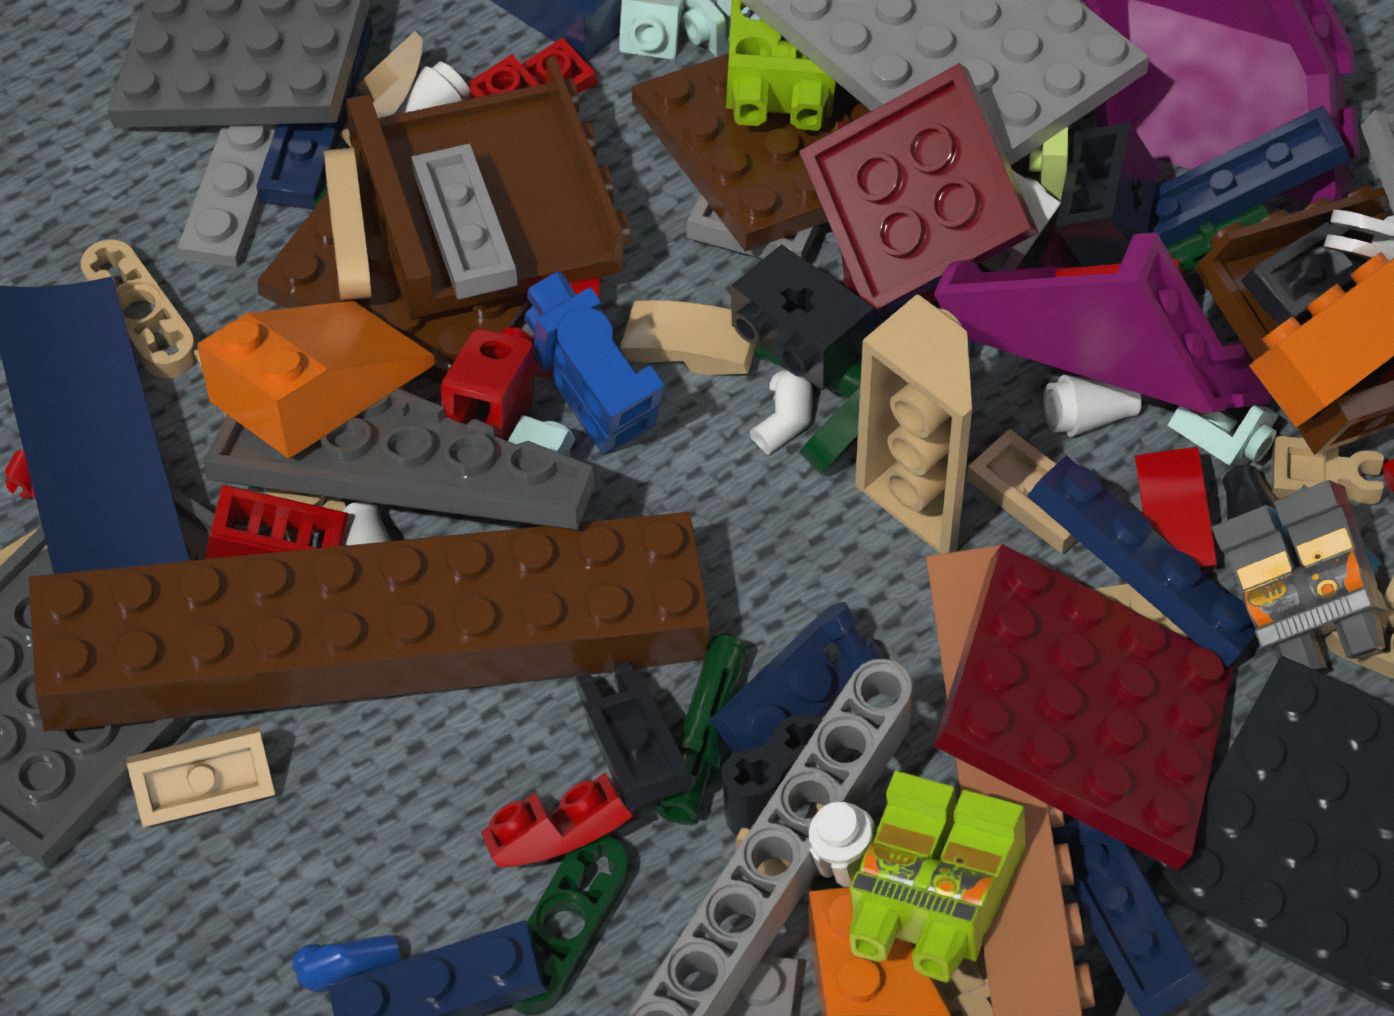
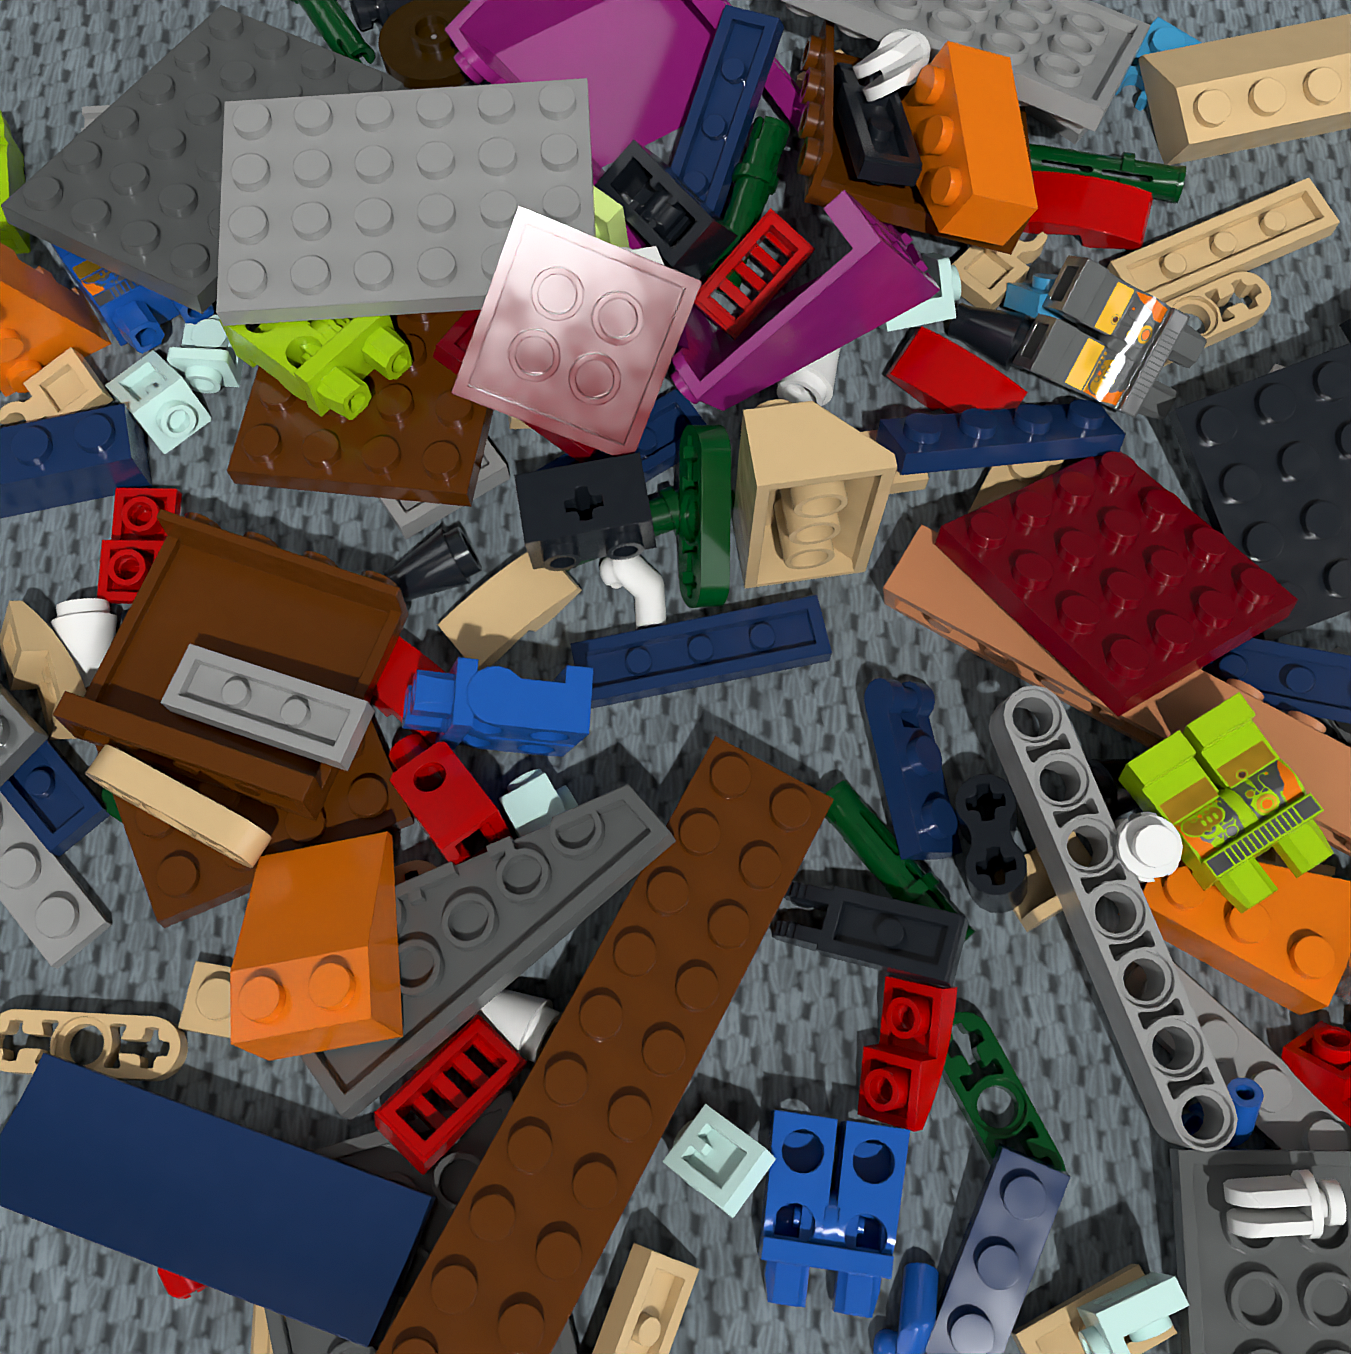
camera: 55 degrees left, 15 degrees up
(363, 734) = (718, 1160): none -> light aqua bracket
(391, 842) = (827, 1228): none -> blue hips
(682, 268) = (436, 565): none -> black cone
(768, 484) = (704, 651): none -> dark blue plate

